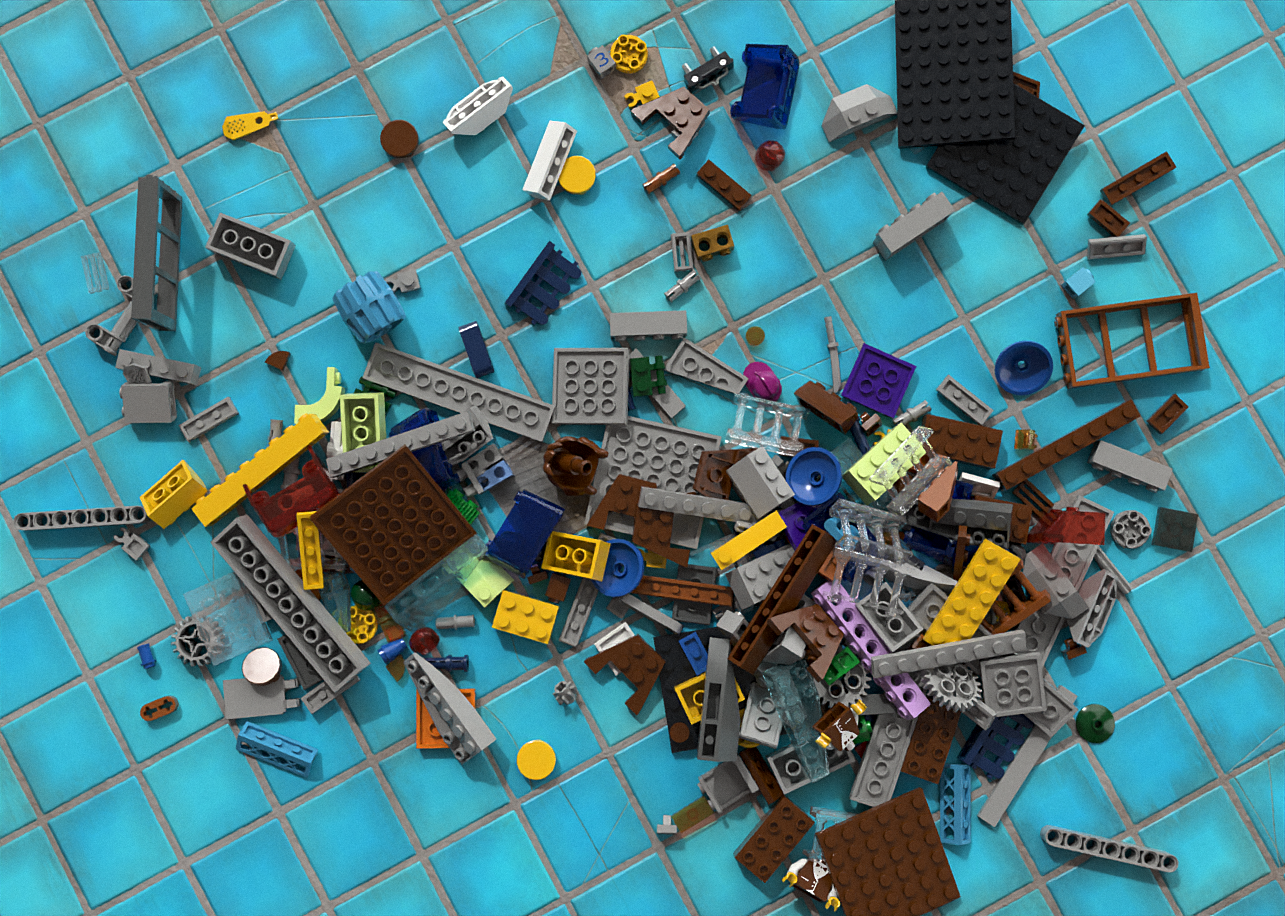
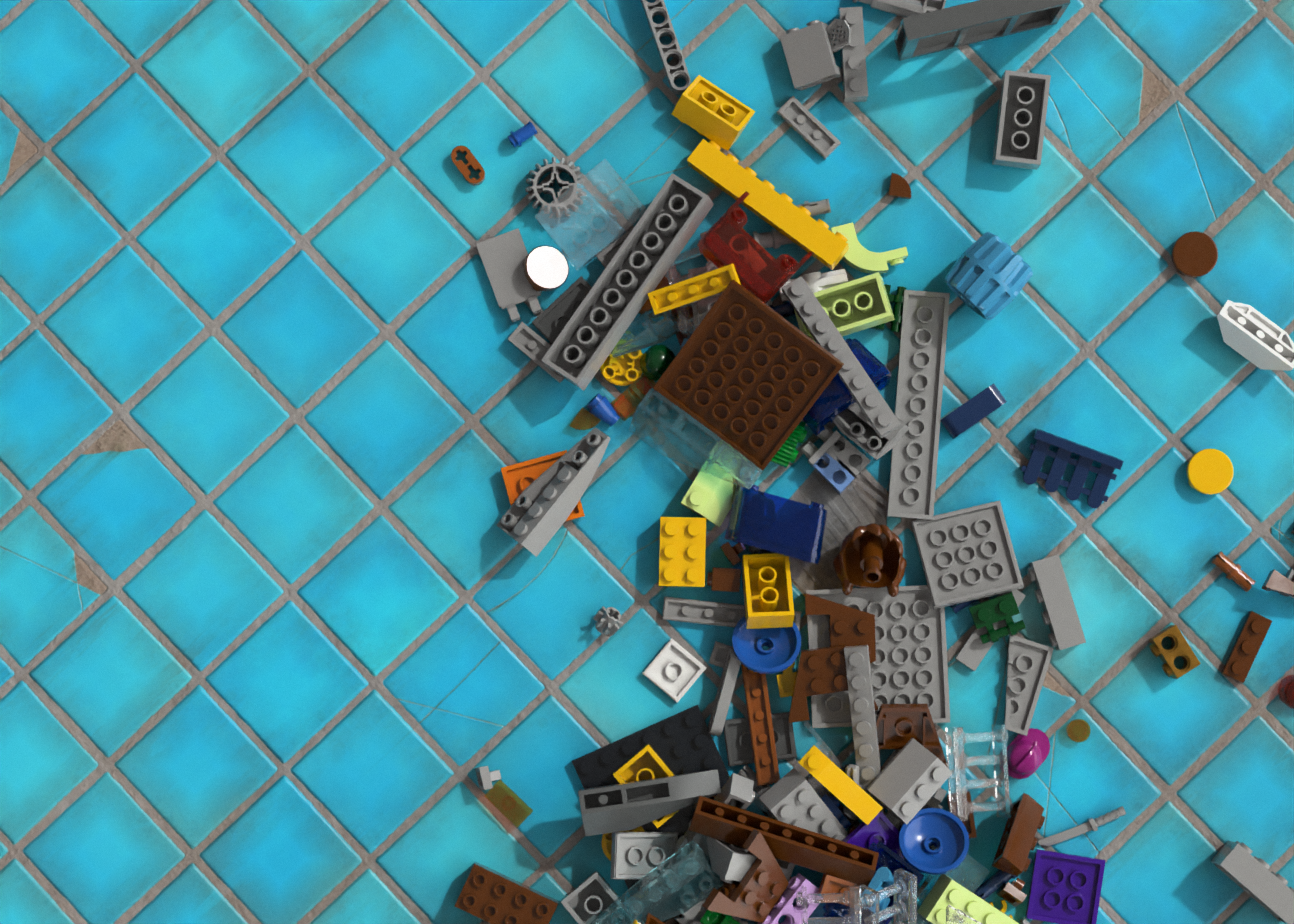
camera: 75 degrees right, 0 degrees up
(133, 545) = (644, 85): light grey plate -> none
(249, 124) = (1164, 76): yellow piece -> none
(276, 746) = (461, 310): dark azure fence -> none
(406, 281) = (1030, 308): light grey plate -> none
(424, 640) = (624, 443): clear red hair -> none
(450, 663) = (606, 481): dark blue pin -> none
(455, 622) = (653, 472): light grey axle -> none
(536, 759) = (523, 607): yellow tile -> none
(549, 160) = (1218, 436): white brick -> none
(636, 661) = (664, 693): reddish brown wing -> none
(679, 732) = (598, 763): reddish brown tile -> none
(682, 286) = (1113, 630): light grey pin -> none
(683, 267) = (1134, 625): light grey tile -> none
(695, 652) = (693, 757): blue plate -> none
(726, 783) = (554, 834): light grey panel -> none
(761, 774) = (575, 870): reddish brown plate -> none

